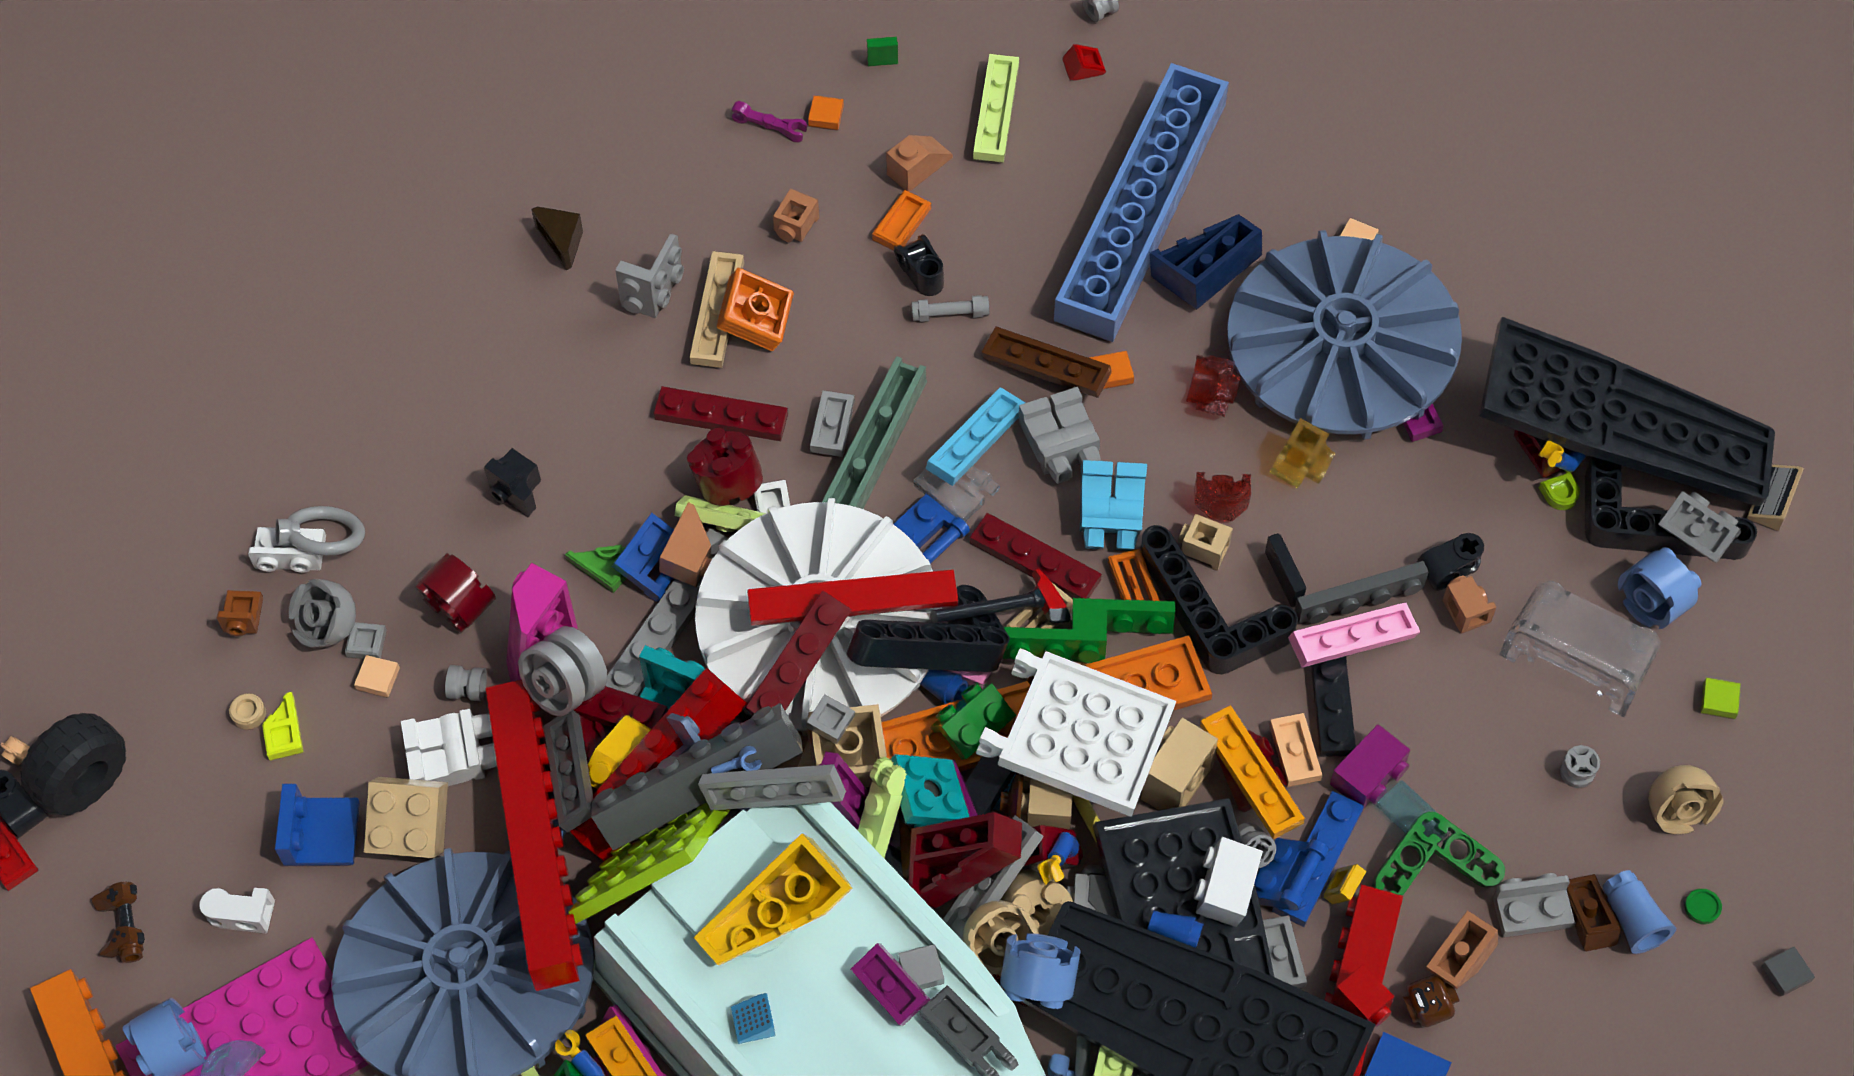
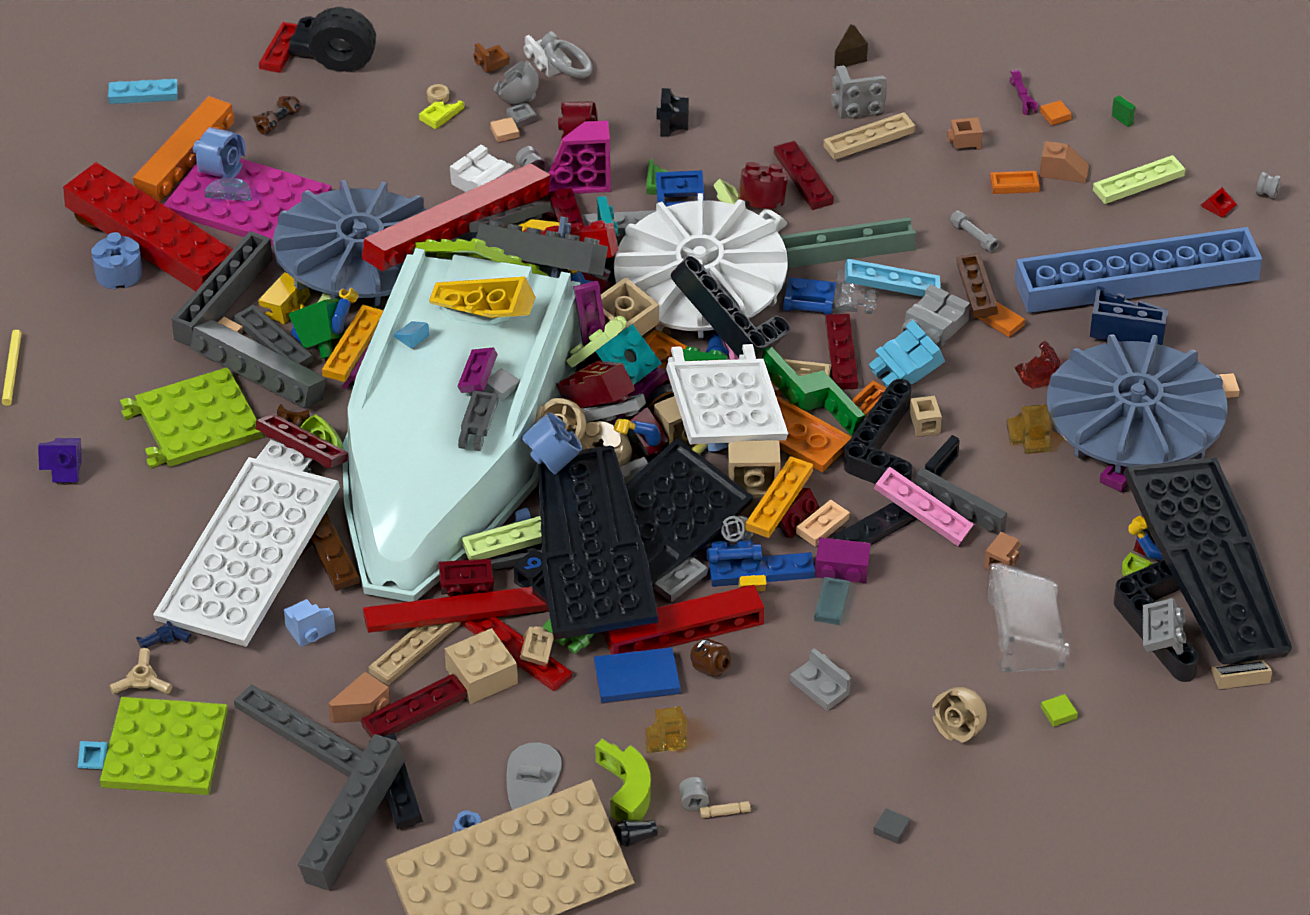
camera: 55 degrees right, 15 degrees down
(238, 911) = (321, 153): white leg -> none
(316, 829) = (390, 150): blue bracket -> none
(406, 817) = (427, 175): tan brick -> none
(562, 671) = (561, 176): light grey wheel -> none
(687, 549) = (688, 189): nougat slope -> none
(739, 762) = (556, 248): medium blue hand -> none
(760, 325) = (886, 134): orange brick -> none
(772, 787) = (552, 266): light grey plate -> none
(800, 654) = (654, 257): dark red plate -> none
(830, 719) = (628, 286): light grey tile -> none
(832, 423) = (843, 217): light grey plate -> none
(861, 595) = (716, 260): red tile -> none
(921, 265) = (990, 203): black piece -> none
(1043, 596) = (813, 360): black piece -> none
(1177, 927) = (642, 506): blue cone -> none
(1222, 496) = (963, 409): clear red hair -> none
(1228, 881) = (694, 515): white brick -> none
(1364, 996) = (675, 610): red brick -> none
(1428, 845) = (811, 609): green beam -> none
(1453, 559) = (1029, 533): black piece -> none
(1464, 950) = (754, 653): nougat slope -> none
(1580, 758) = (939, 659): light grey wheel -> none
(1592, 914) = (842, 712): reddish brown slope -> none
(1637, 913) = (858, 730): medium blue plant -> none
(1659, 588) = (1102, 634): medium blue brick -> none
(1703, 906) = (900, 766): green piece -> none

